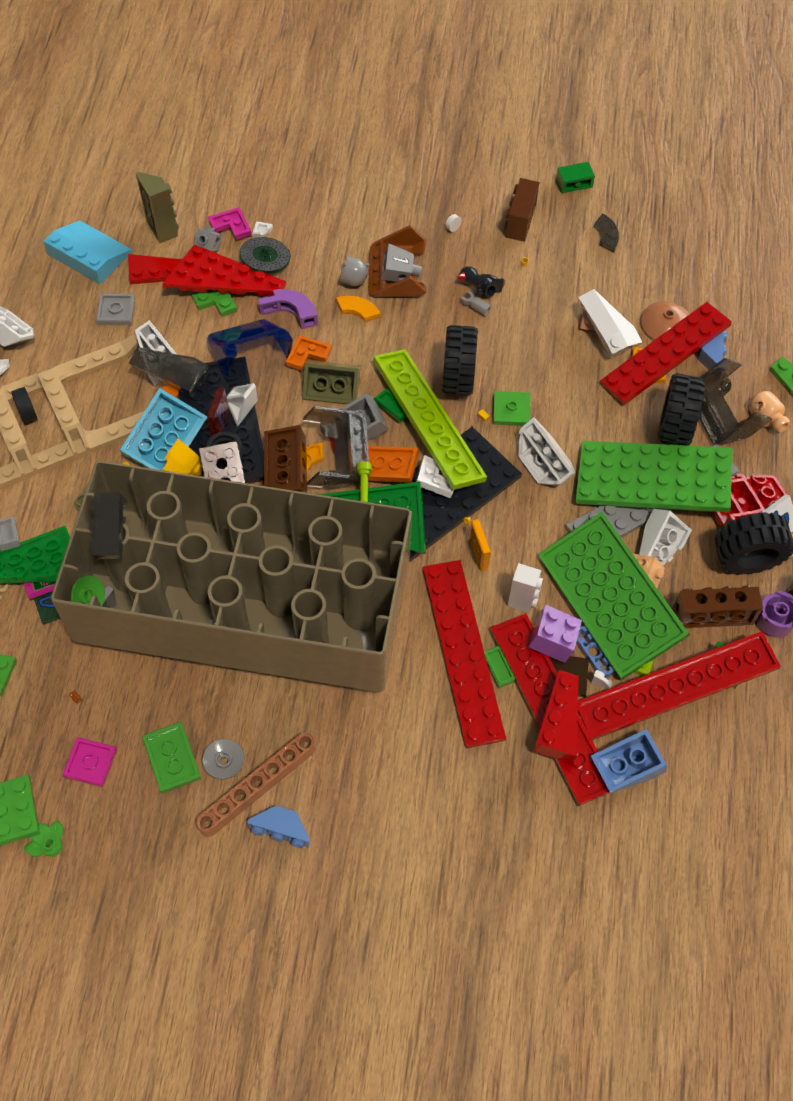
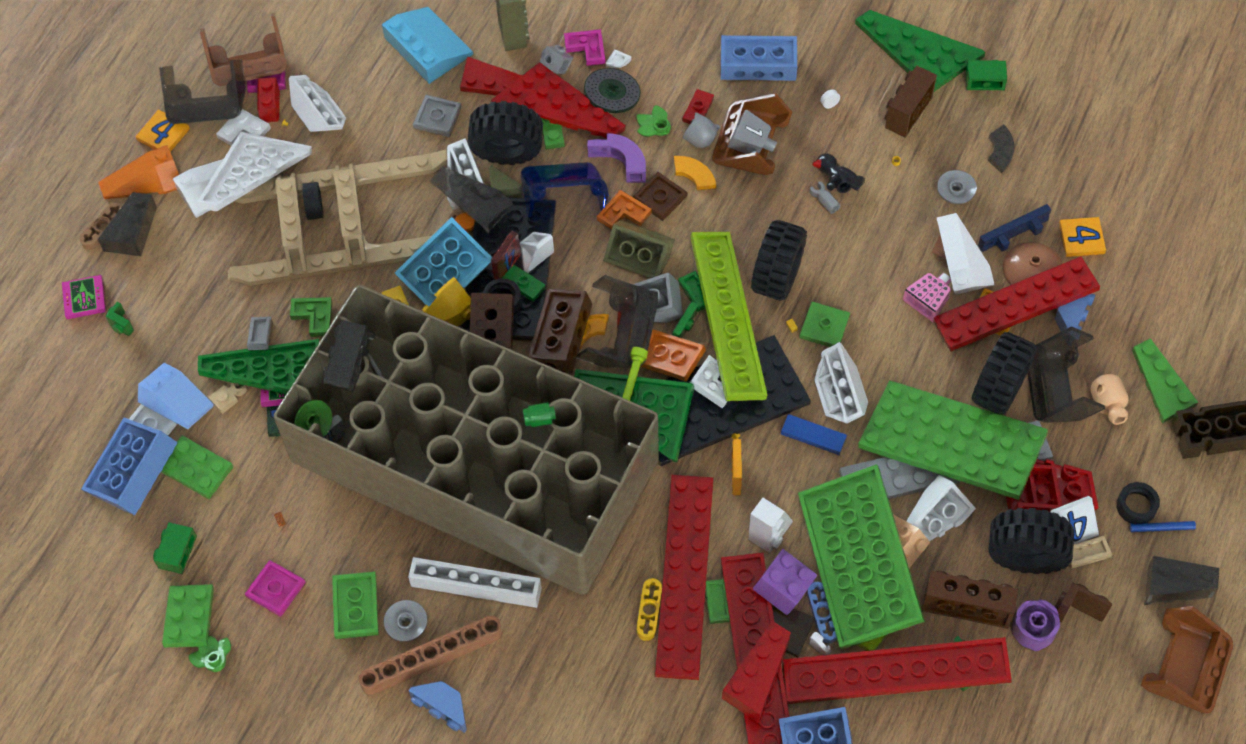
camera: 20 degrees right, 0 degrees up
(54, 500) = (317, 310): none -> bright green plate
(184, 307) = (505, 133): none -> black tyre
(196, 351) = (505, 184): none -> olive slope
(247, 434) = (528, 285): none -> green plate
(277, 706) = (475, 582): none -> white brick
(304, 536) = (539, 415): none -> green brick
(310, 274) = (651, 124): none -> bright green plate
(335, 332) = (661, 195): none -> reddish brown tile
(343, 248) = (700, 103): none -> red plate
(383, 202) = (759, 58): none -> medium blue brick
(393, 433) = (686, 321): none -> green plate
(445, 681) = (648, 601): none -> yellow beam
(508, 167) = (916, 46): none -> green wing
(533, 502) = (813, 434): none -> blue tile
(583, 270) = (958, 181): none -> light grey dish
(590, 363) = (928, 294): none -> bright pink torso
(653, 284) = (1001, 235): none -> dark blue hinge
(697, 288) = (1082, 237): none -> light orange tile

